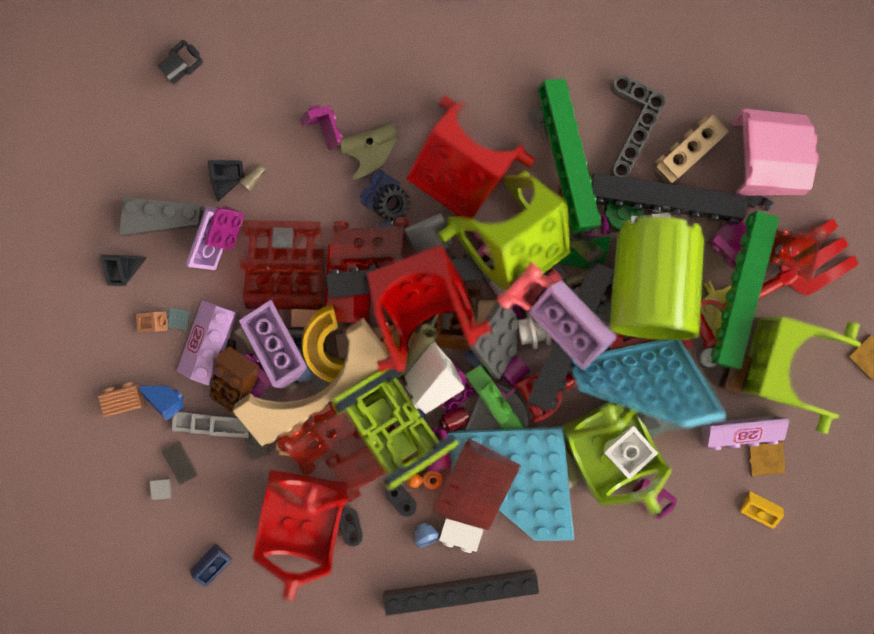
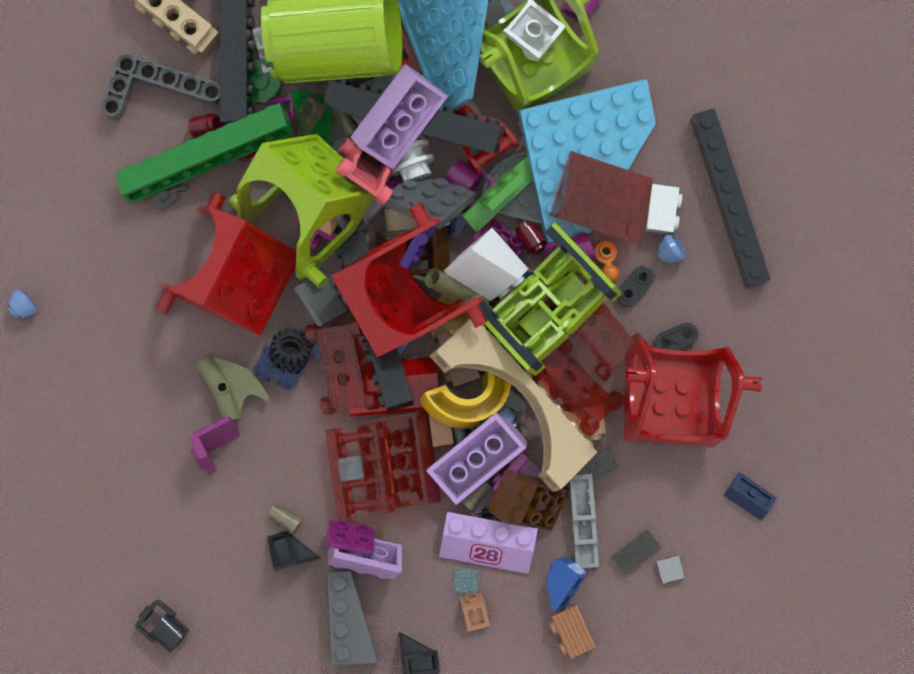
camera: 100 degrees left, 5 degrees down
(452, 318) = (416, 248): none -> dark purple plate
(594, 159) = (204, 123): none -> dark red brick

